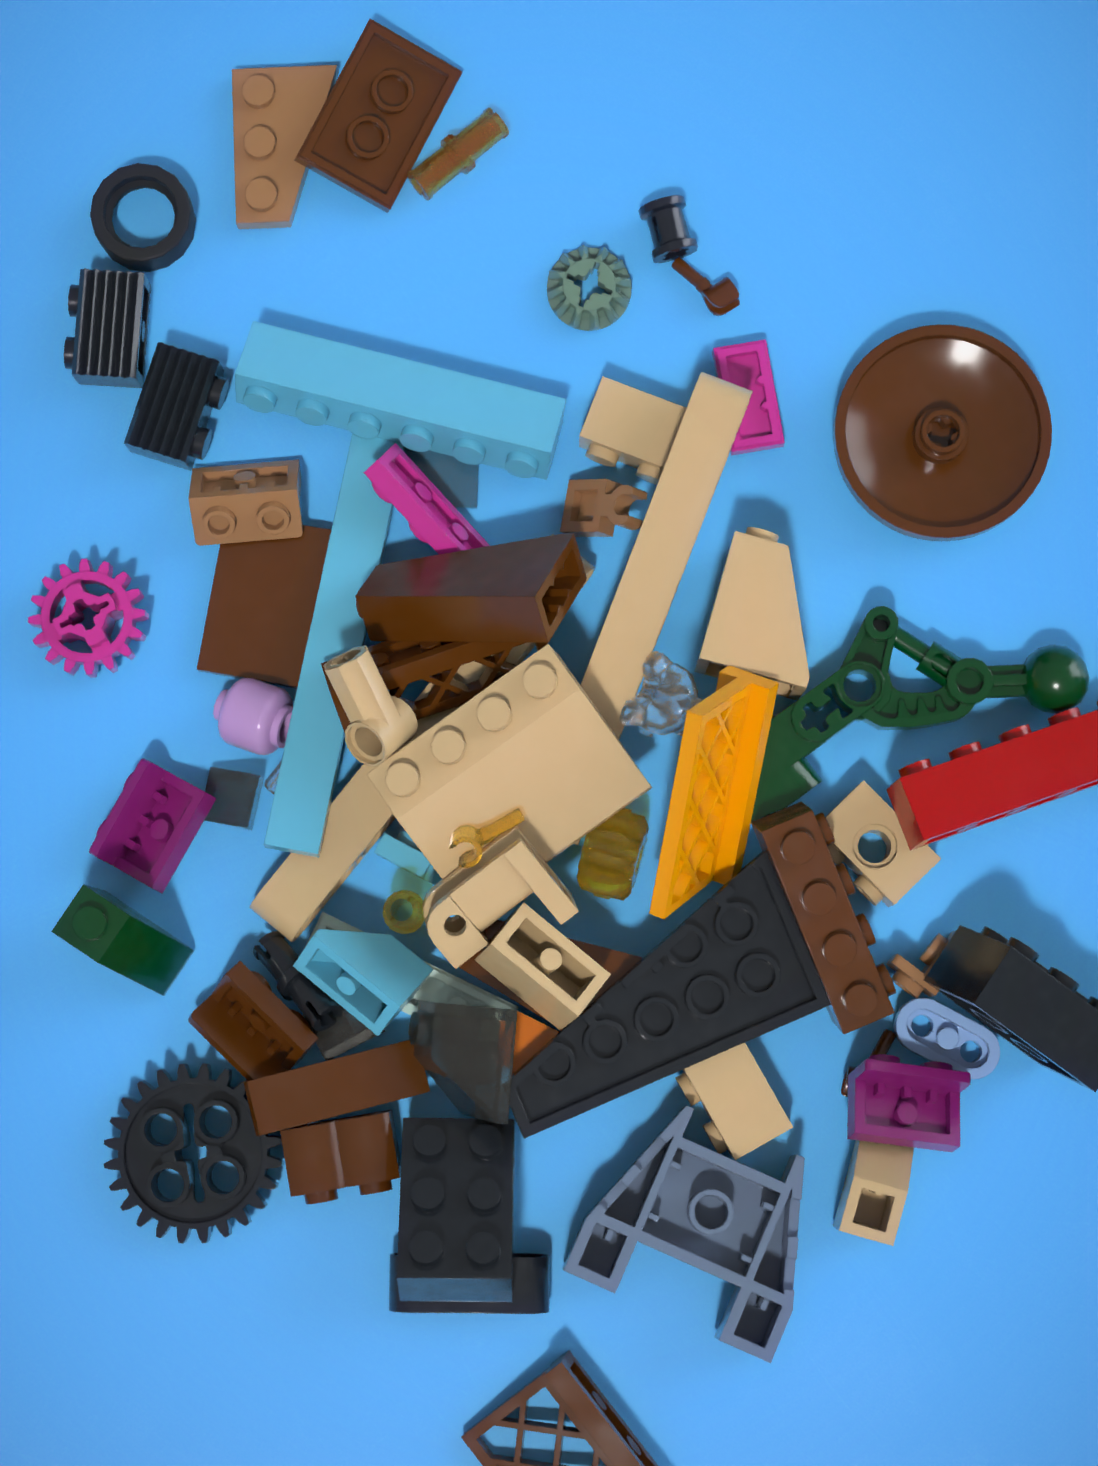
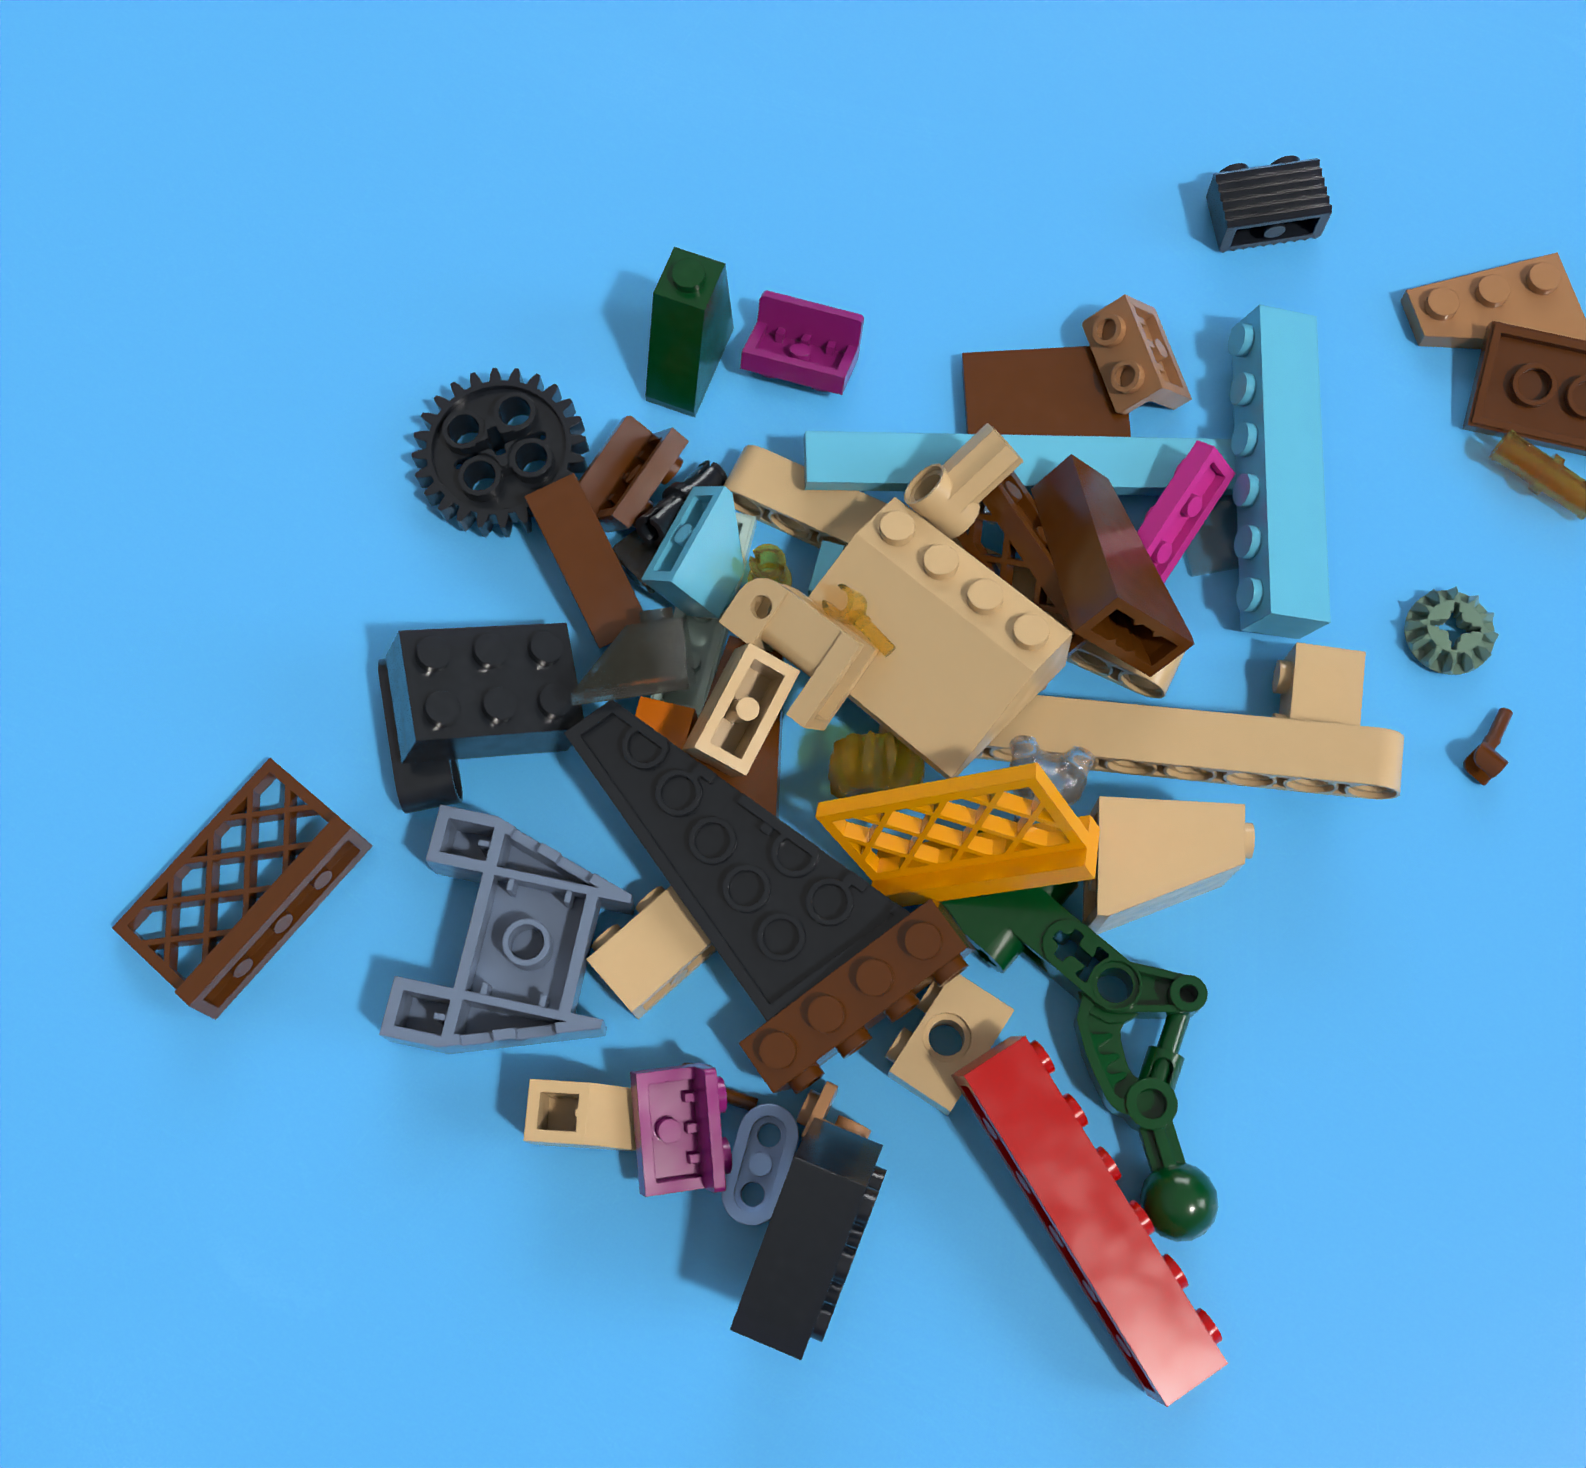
camera: 80 degrees right, 10 degrees down
(109, 609) = (985, 247): dark pink gear -> none
(119, 185) = (1392, 175): black tyre -> none
(176, 407) = (1210, 275): black brick -> none
(236, 797) = (846, 412): clear smoke slope -> none
(254, 716) = (930, 405): lavender head -> none
(342, 1154) = (521, 577): reddish brown brick -> none
(597, 506) = (1227, 682): medium nougat plate -> none
(668, 228) = (1540, 691): black bush -> none
(750, 368) = (1370, 823): dark pink plate -> none
(942, 432) = (1415, 1020): reddish brown dish -> none

